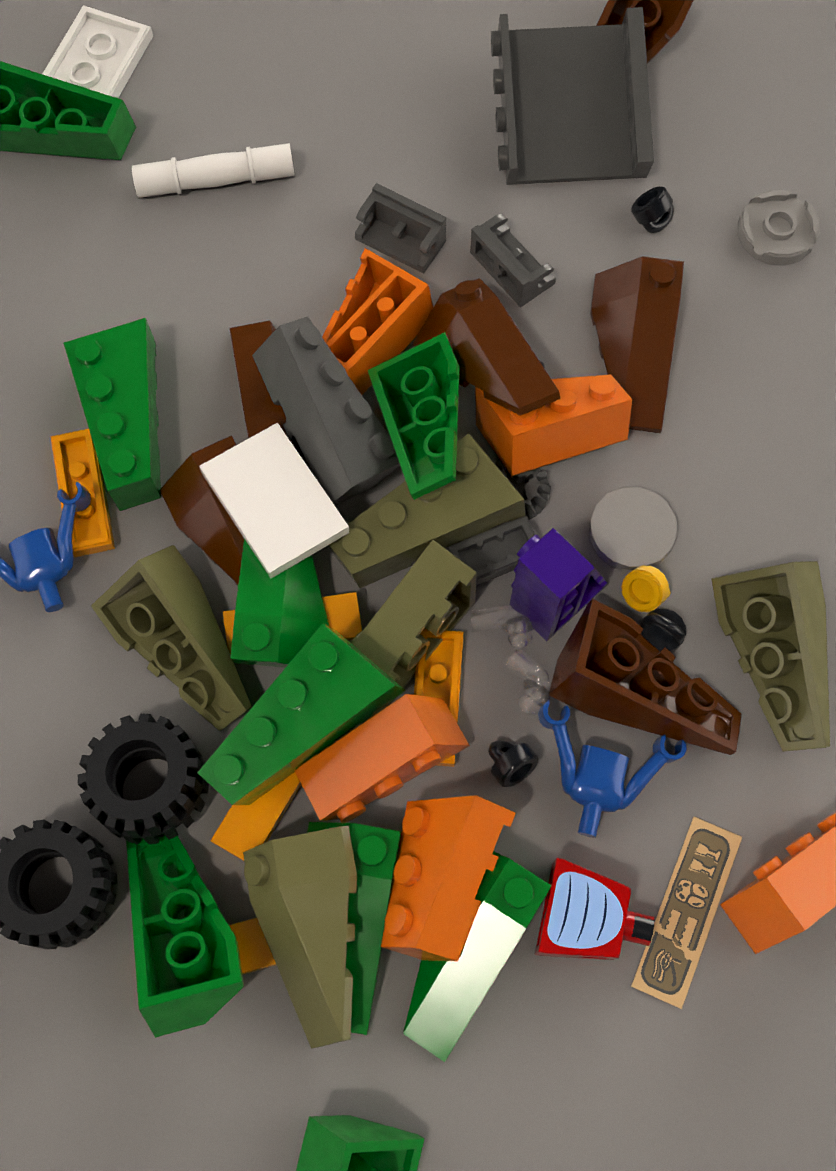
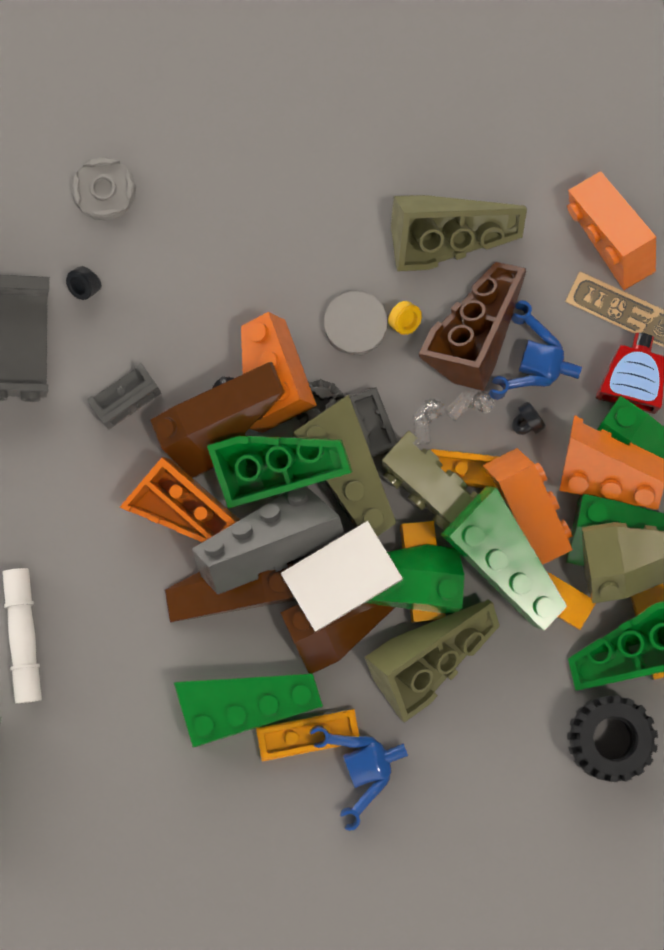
camera: 85 degrees left, 10 degrees up
(123, 750) = (570, 674): black tyre -> none
(400, 228) = (90, 482): dark grey hinge -> none
(552, 582) = (407, 376): dark purple wedge -> none
(636, 331) = (189, 304): reddish brown wedge -> none
(664, 629) = (435, 308): black tile -> none

